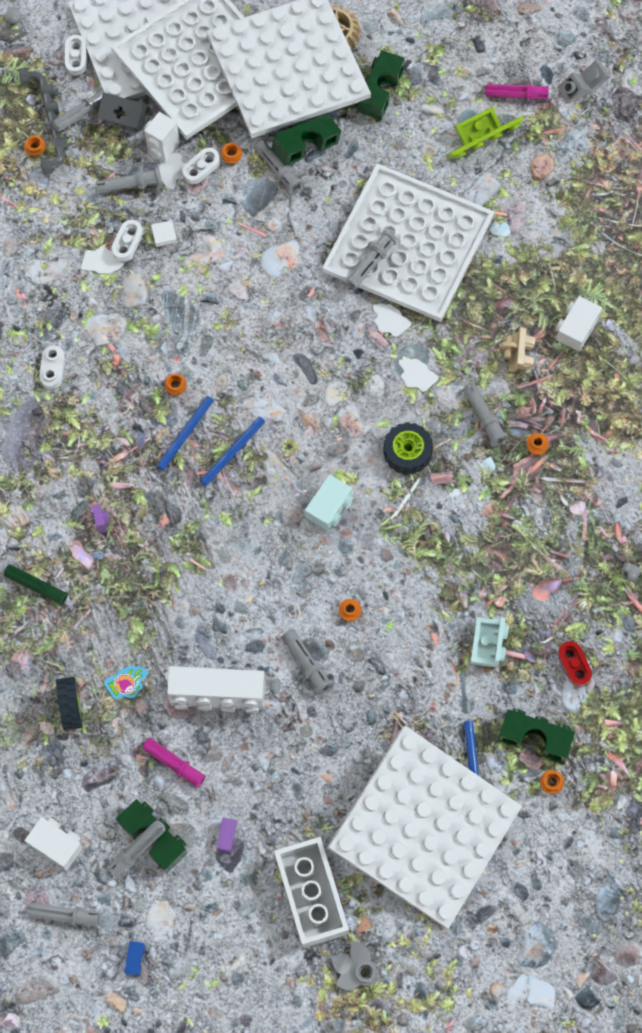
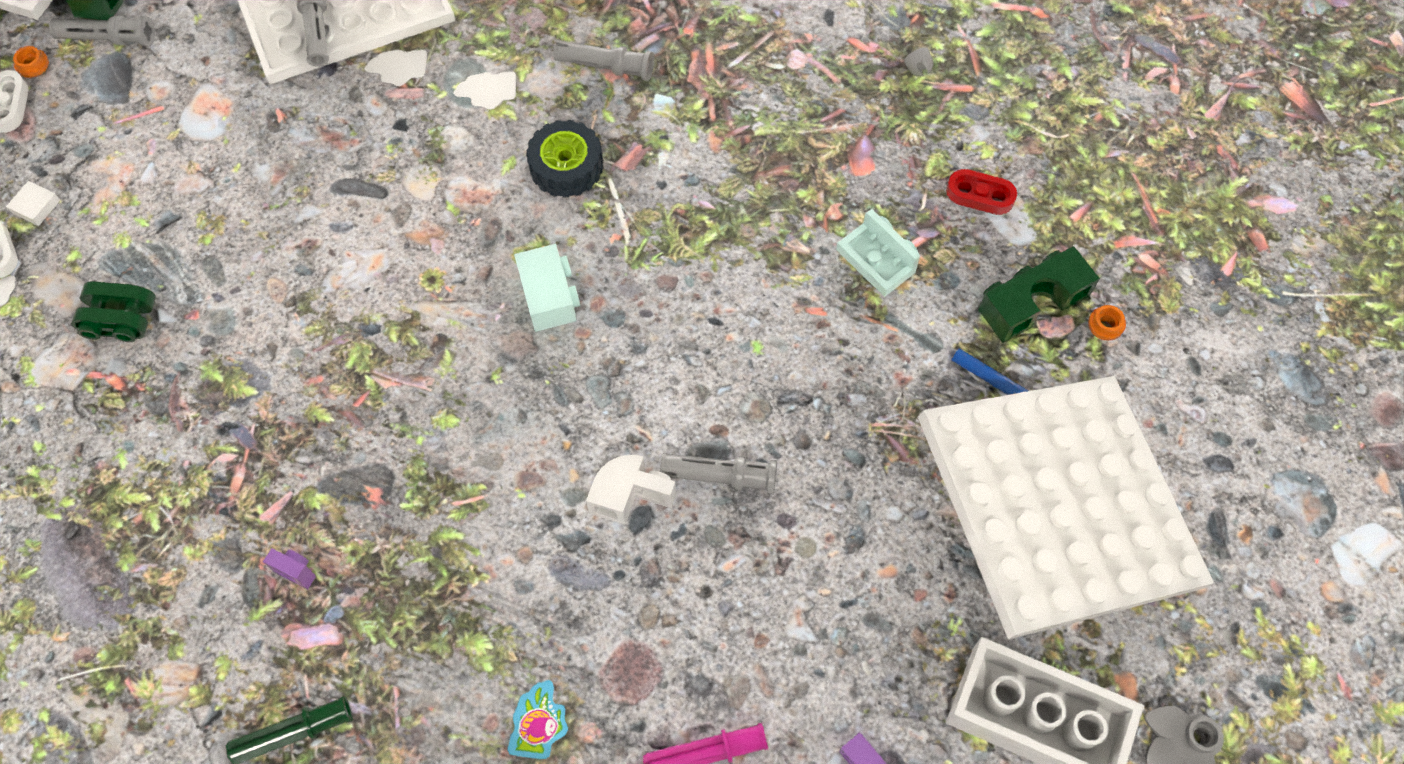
camera: 50 degrees left, 5 degrees down
(52, 365) = (35, 461): white plate -> none
(142, 337) = (113, 311): none -> dark green brick
(175, 378) = (215, 332): orange plate -> none
(186, 431) = (292, 379): blue bar -> none
(216, 689) = (661, 606): white brick -> none
(232, 451) = (372, 344): blue bar -> none
(261, 622) = (621, 482): none -> white brick
(350, 616) = (696, 380): orange plate -> none
(537, 450) = (688, 38): orange plate -> none

